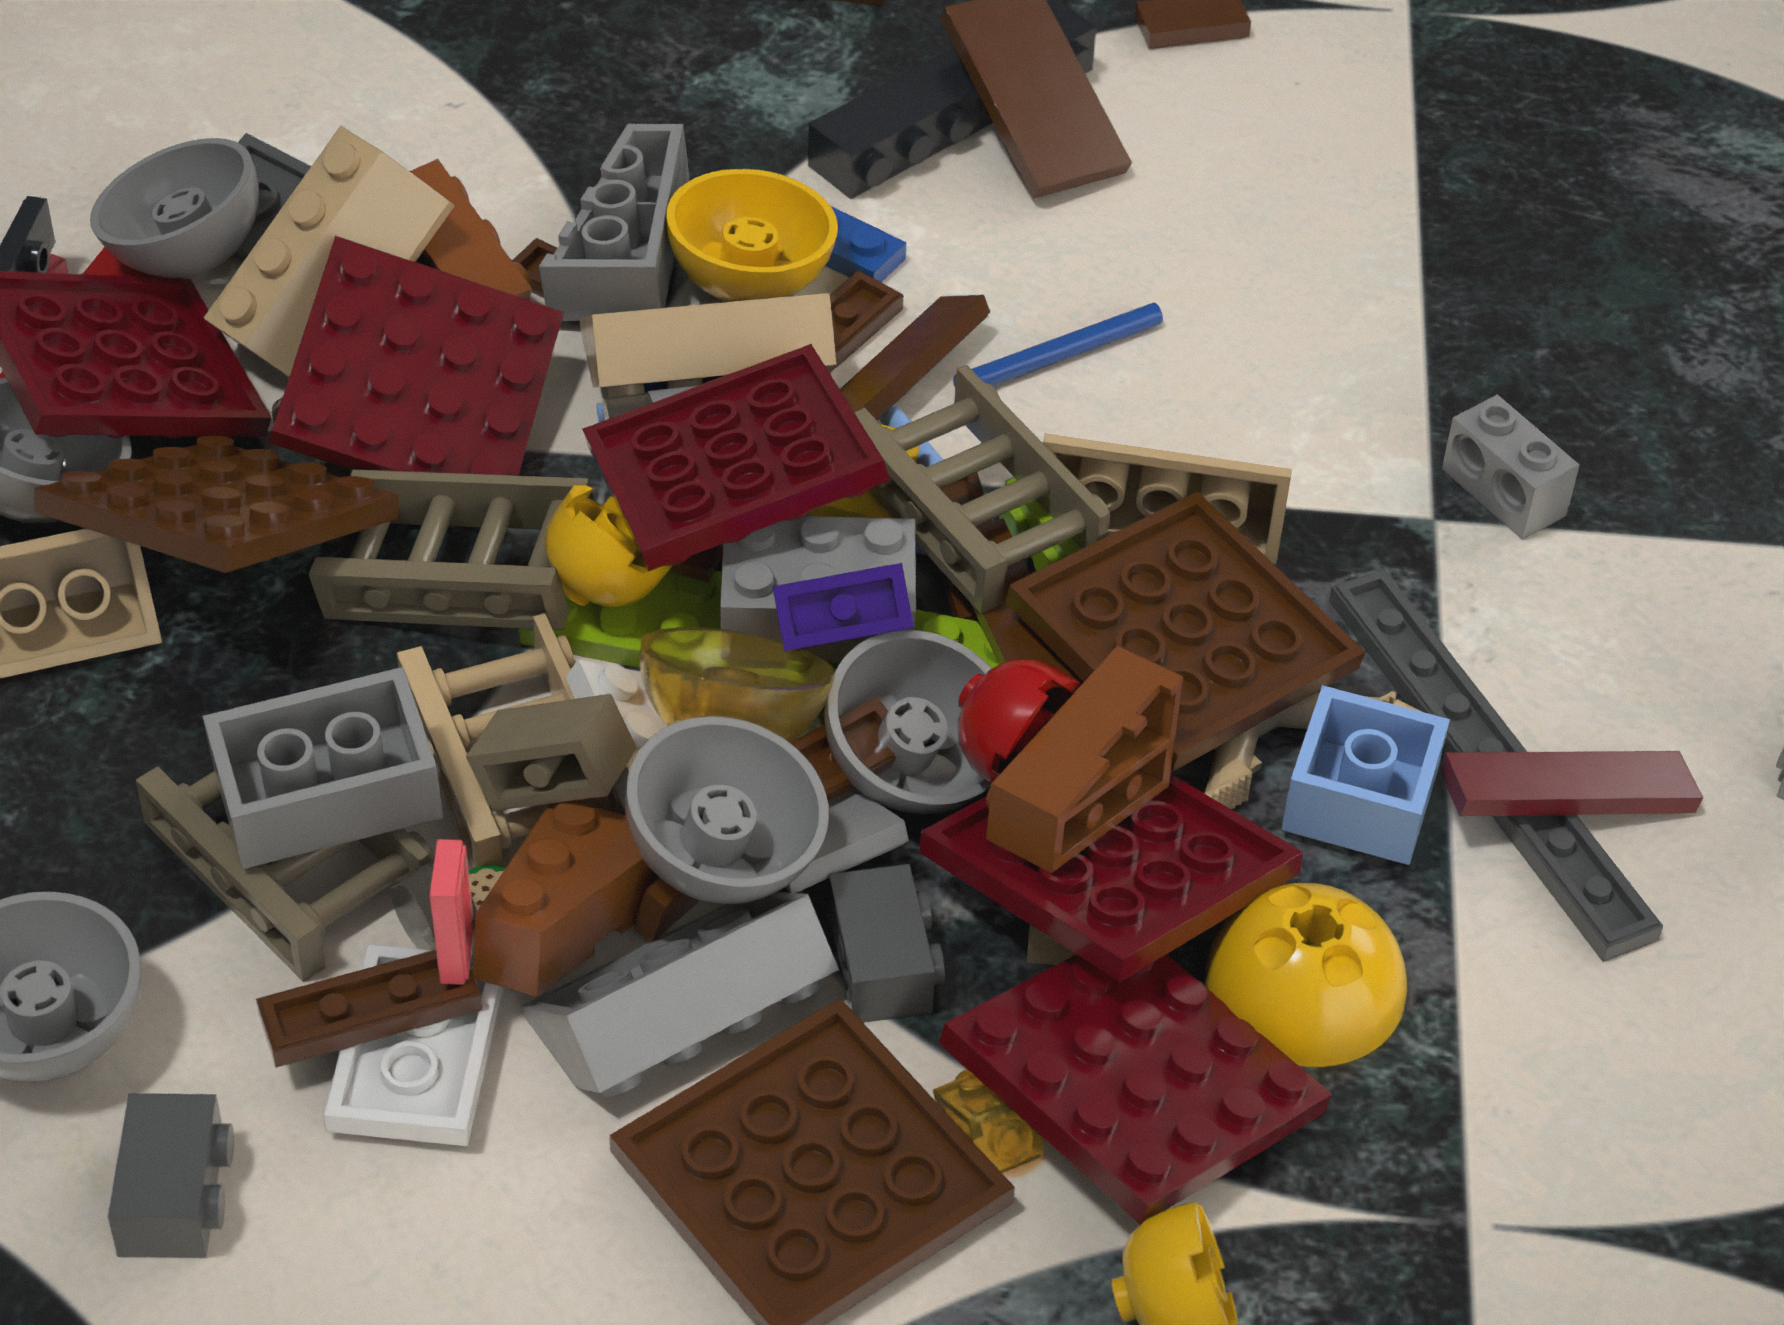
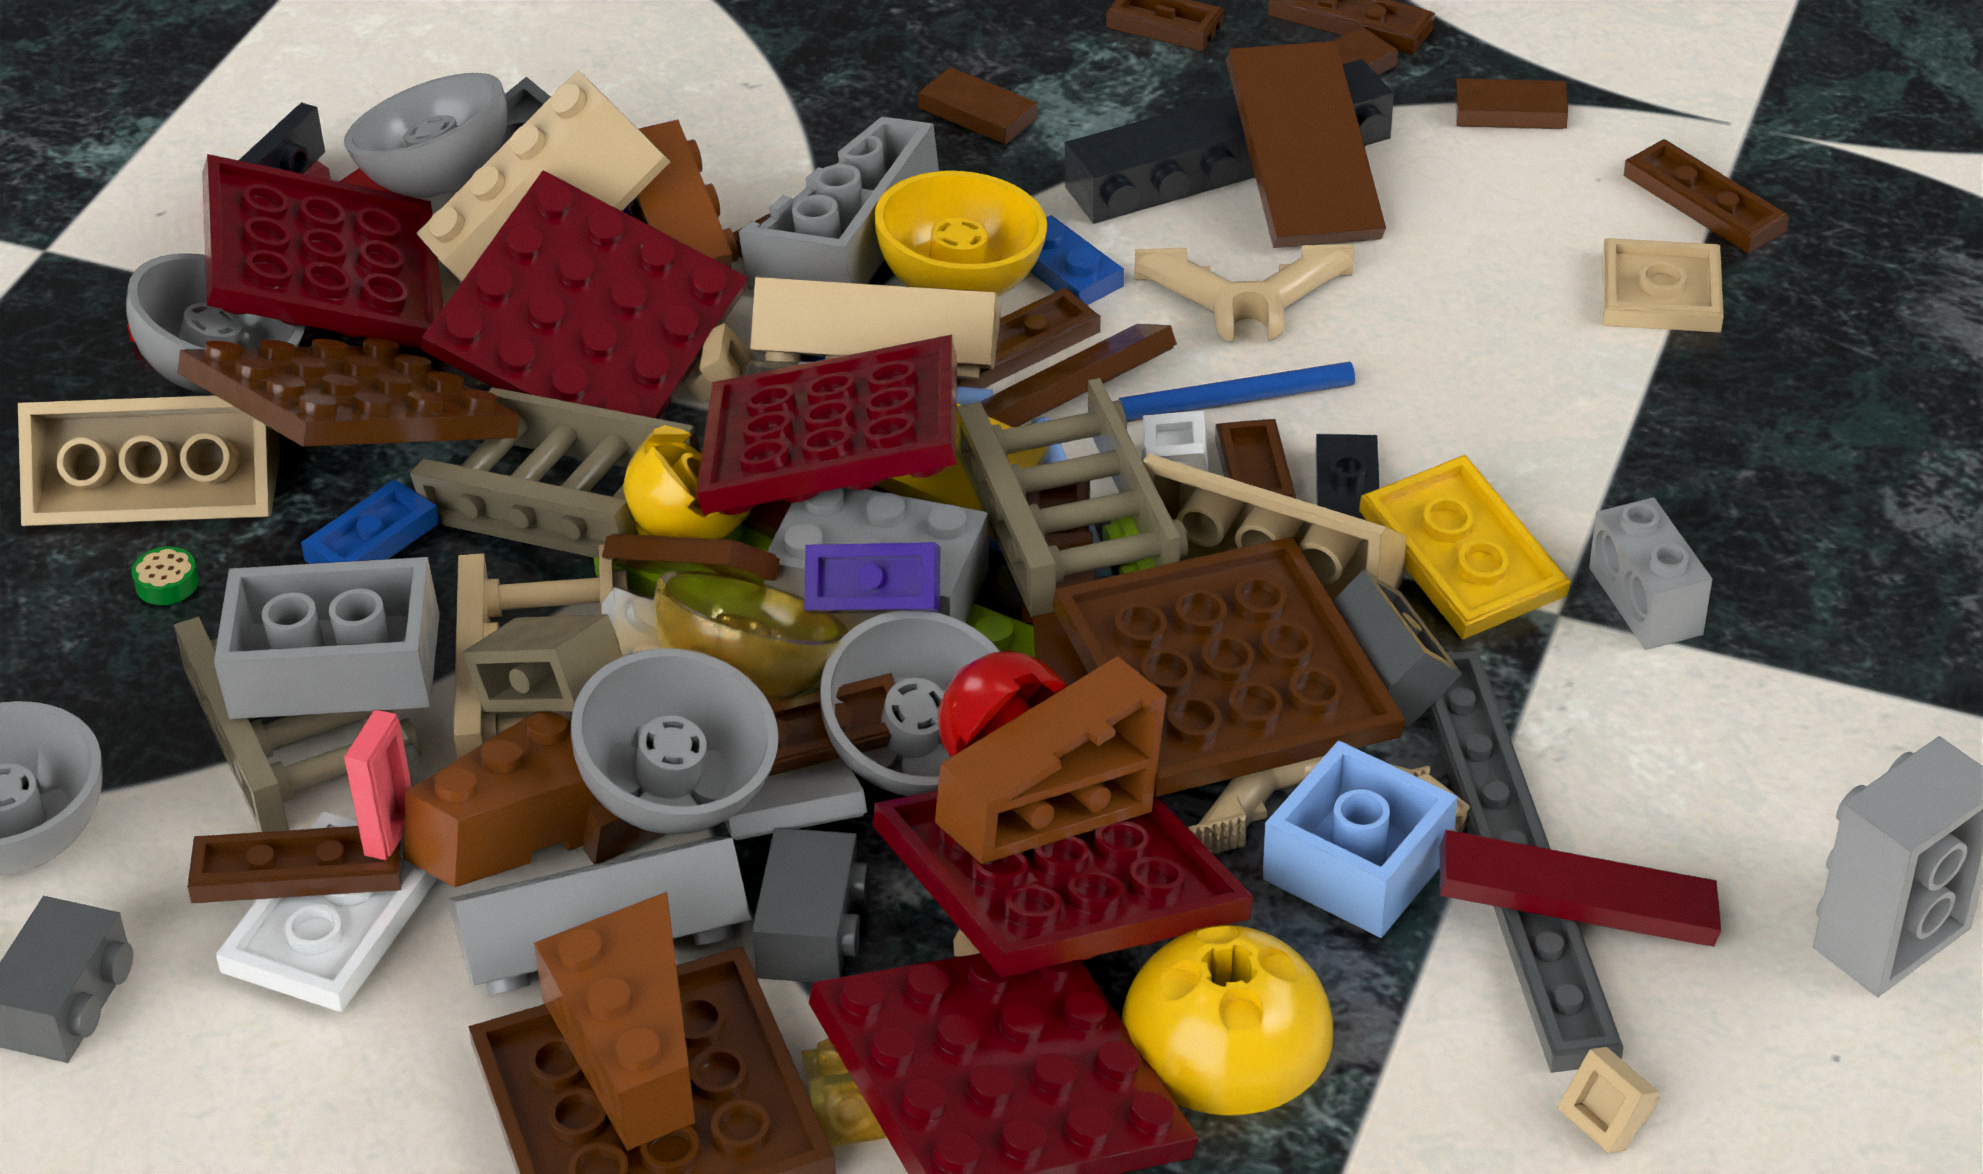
camera: 20 degrees right, 5 degrees down
(84, 725) = (165, 575): none -> tile
(281, 642) = (373, 527): none -> blue plate
(563, 408) = (721, 359): none -> tan tile
(643, 614) = (672, 554): none -> reddish brown tile
(692, 94) = (978, 105): none -> reddish brown tile
(775, 1096) = (622, 1016): none -> dark orange wedge
(1026, 256) = (1245, 299): none -> tan piece
(1038, 407) = (1177, 437): none -> white bracket
(1103, 412) = (1254, 455): none -> reddish brown tile
(1197, 417) = (1345, 471): none -> black plate
(1323, 575) = (1396, 644): none -> dark grey brick
(1340, 469) = (1466, 546): none -> yellow tile
(1398, 180) = (1662, 285): none -> tan tile
(1402, 85) = (1706, 196): none -> reddish brown tile
(1674, 979) = (1608, 1100): none -> tan tile

